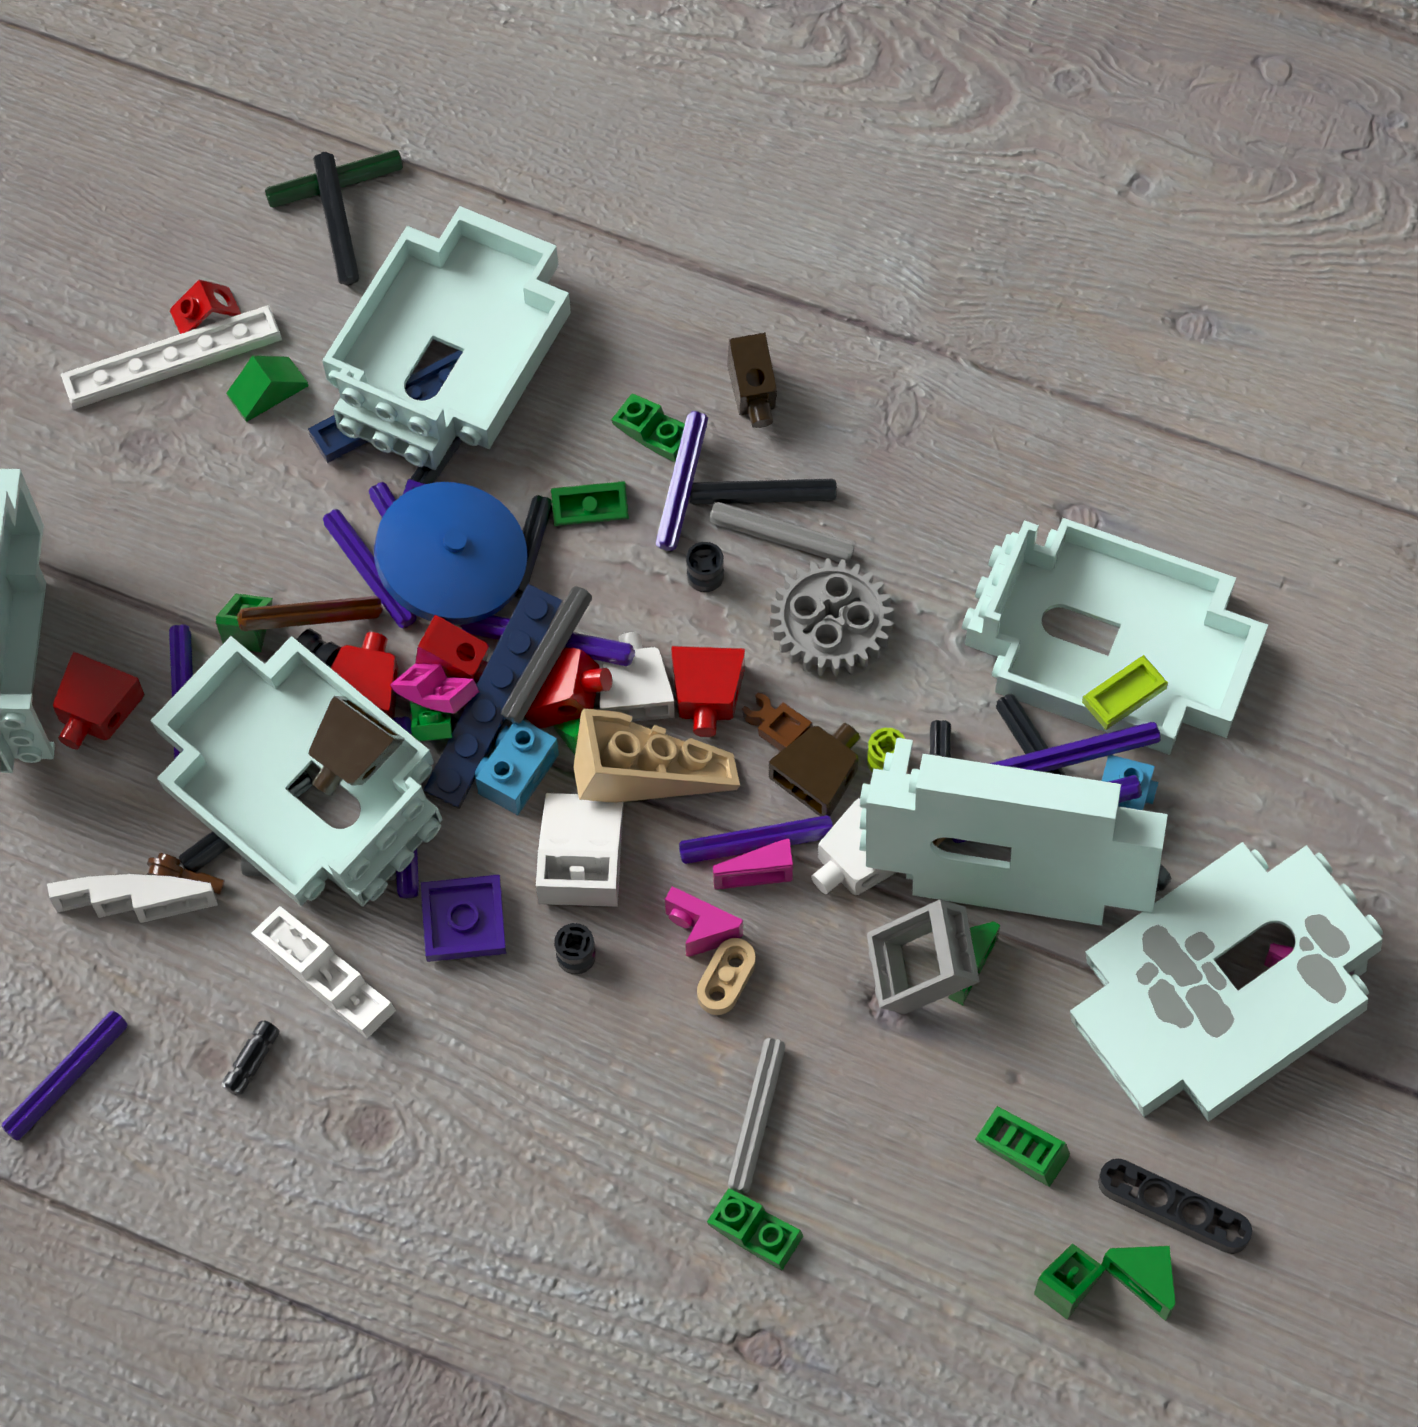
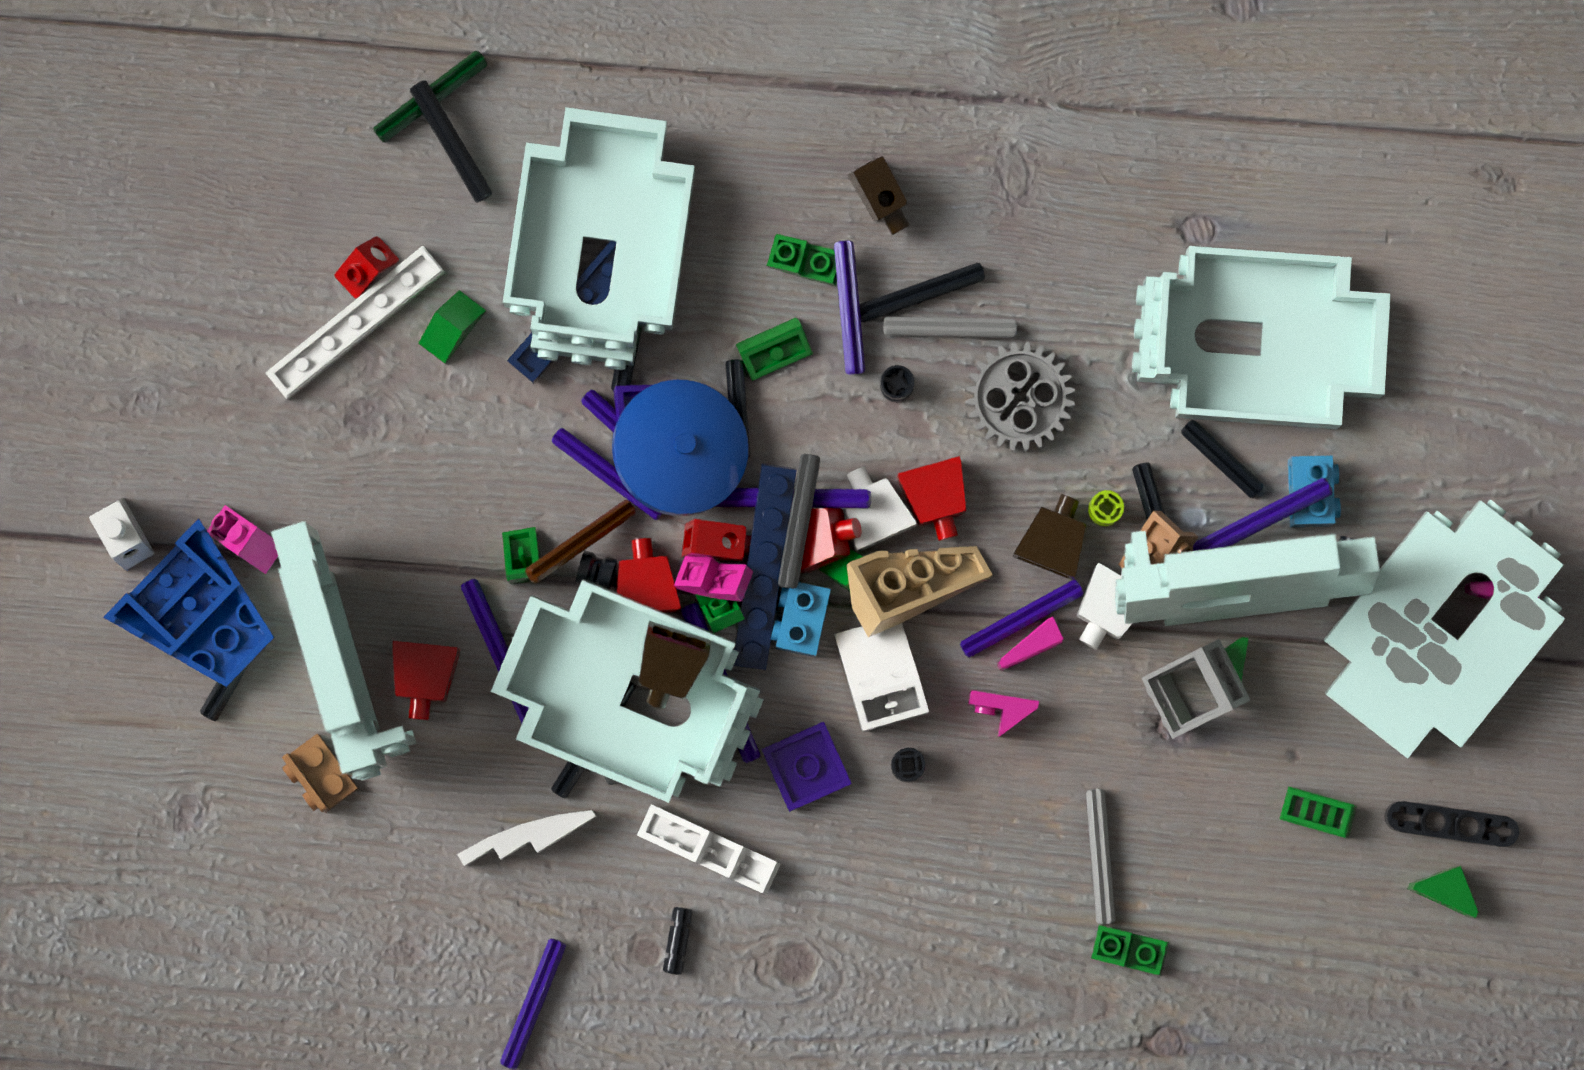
camera: 20 degrees left, 20 degrees up
(170, 866) = (548, 804): reddish brown plate -> none
(725, 978) = (1038, 748): tan plate -> none
(777, 725) = (1009, 512): reddish brown plate -> none
(1068, 1280) = (1388, 912): green slope -> none
(1086, 749) = (1255, 468): dark purple axle -> none
(1124, 692) = (1290, 397): lime tile -> none

